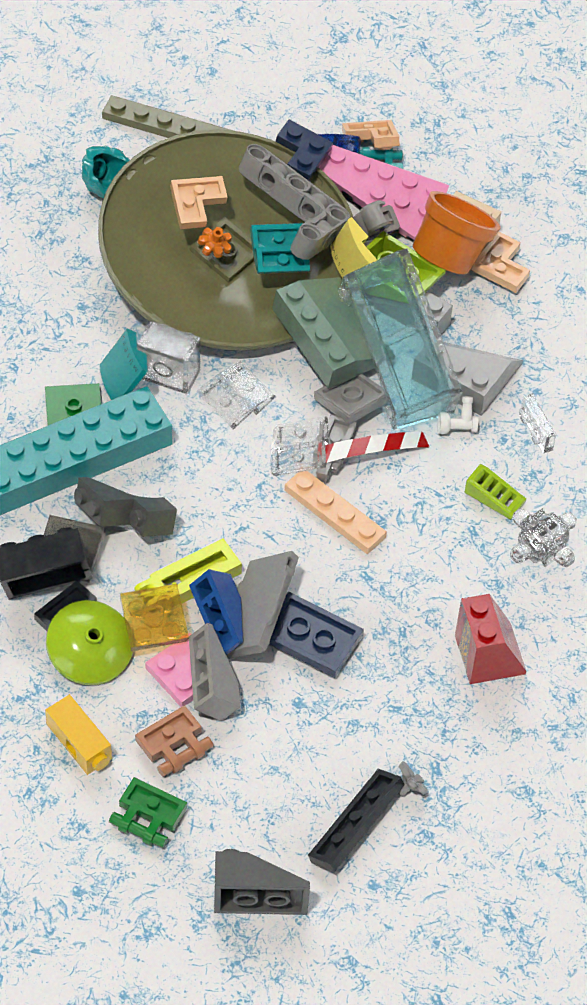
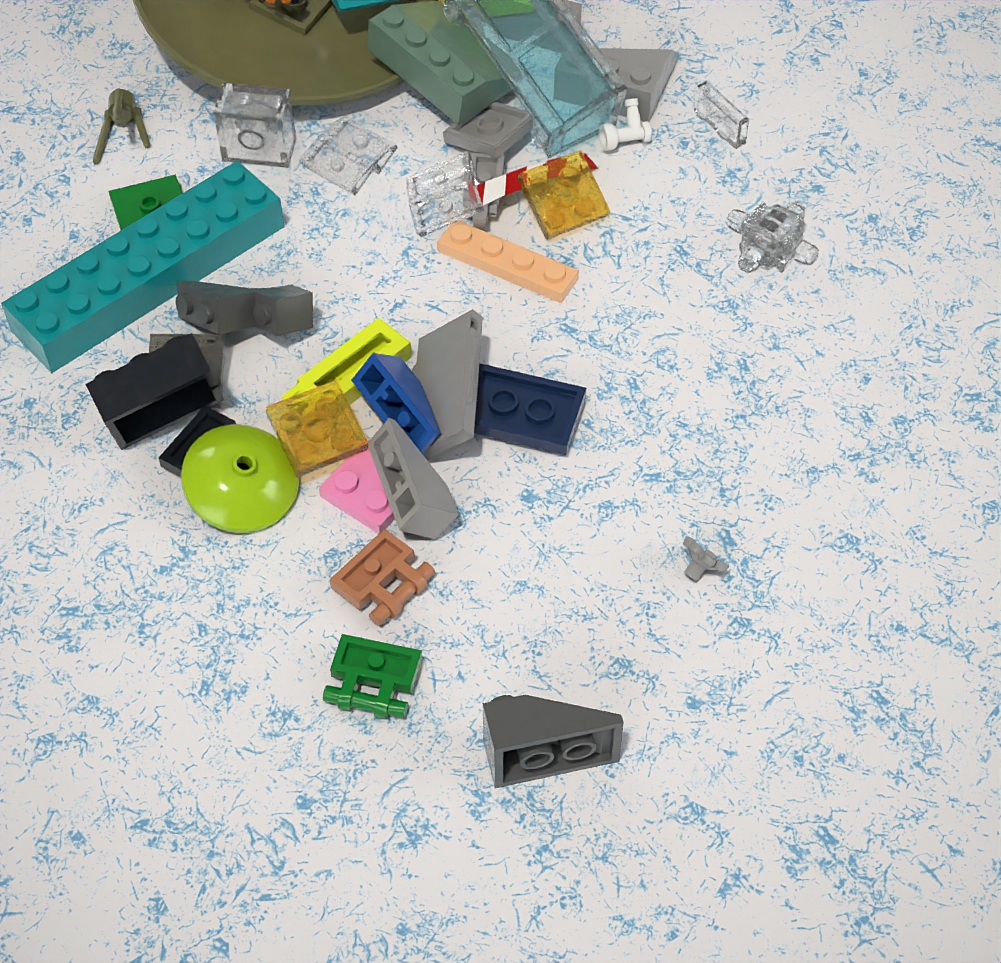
camera: 10 degrees left, 0 degrees up
(69, 319) = (121, 111): none -> olive plant
(78, 735) = (254, 596): yellow brick -> none
(123, 366) = (201, 144): teal slope -> none
(356, 820) = (648, 624): black plate -> none
(392, 467) = (563, 194): none -> clear yellow plate
(487, 641) = (743, 368): slope -> none
(490, 479) = (673, 200): lime slope -> none

